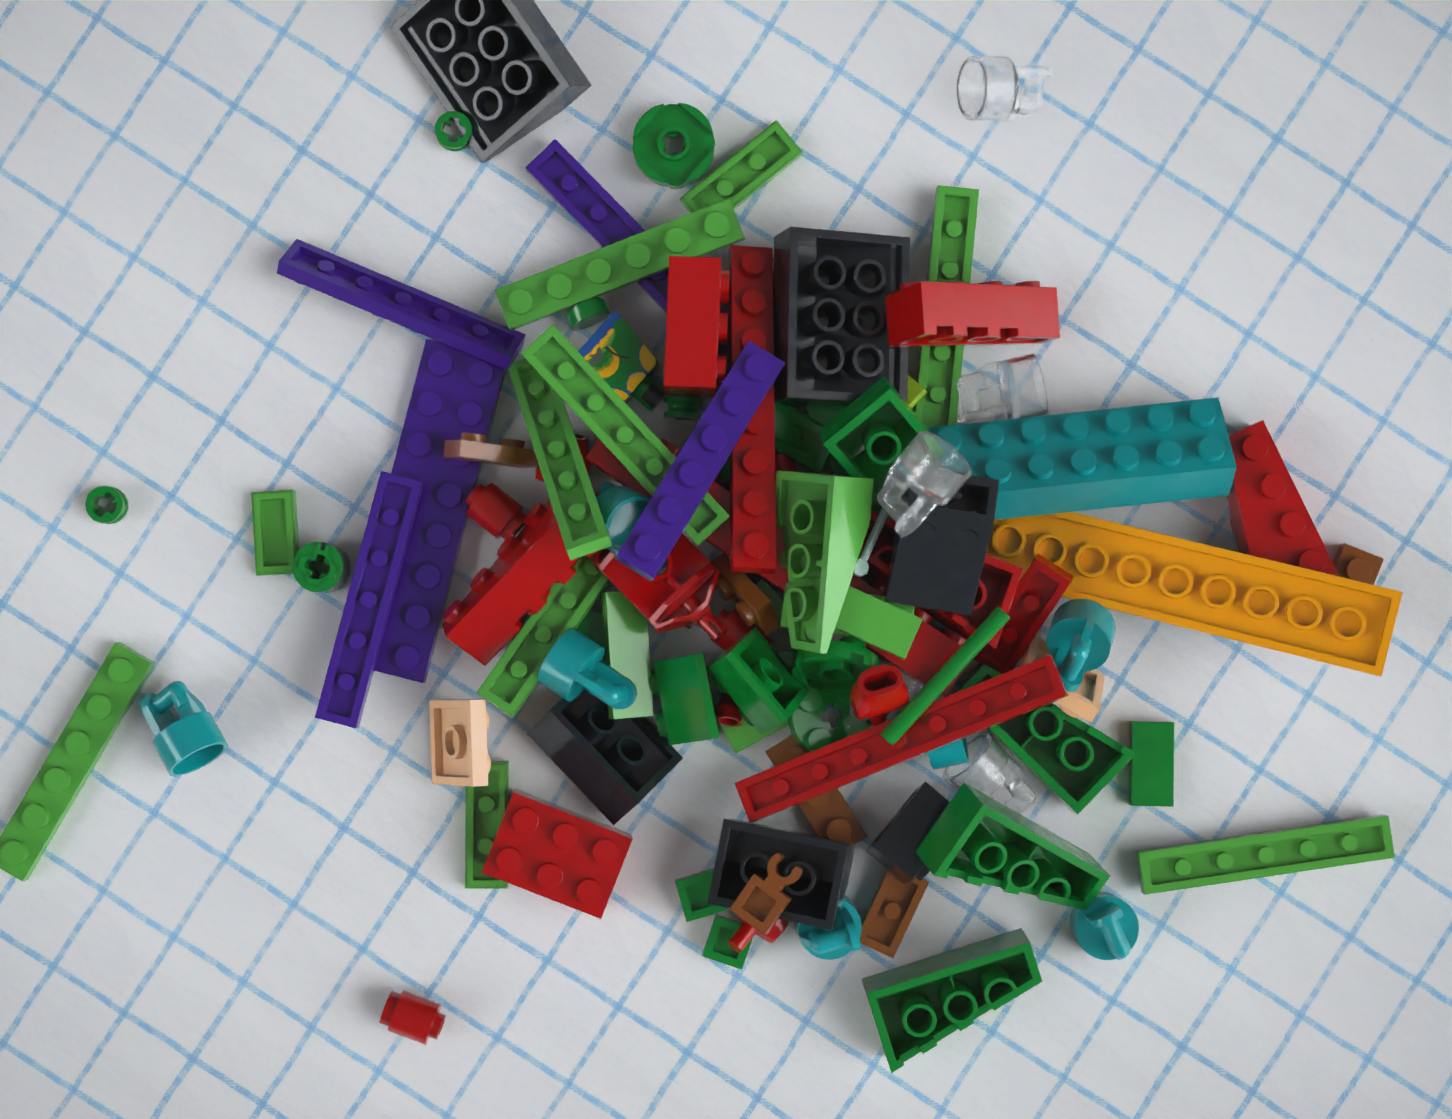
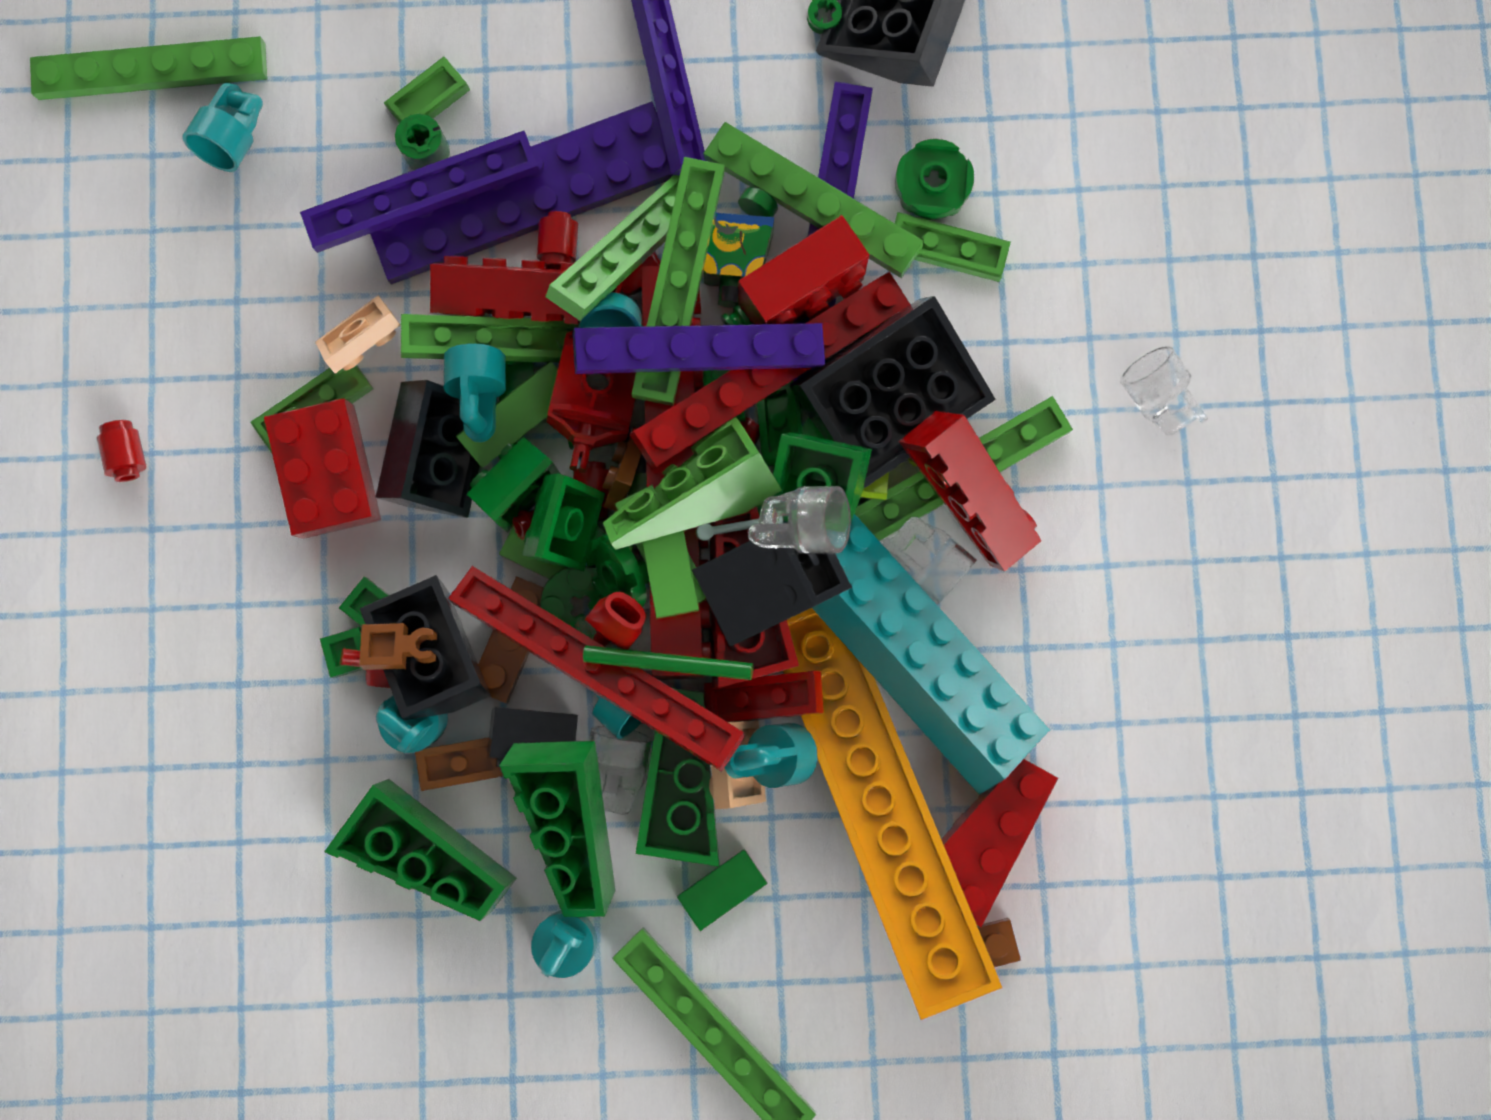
camera: 55 degrees right, 5 degrees down
(474, 448) = (591, 187): dark orange plate -> none

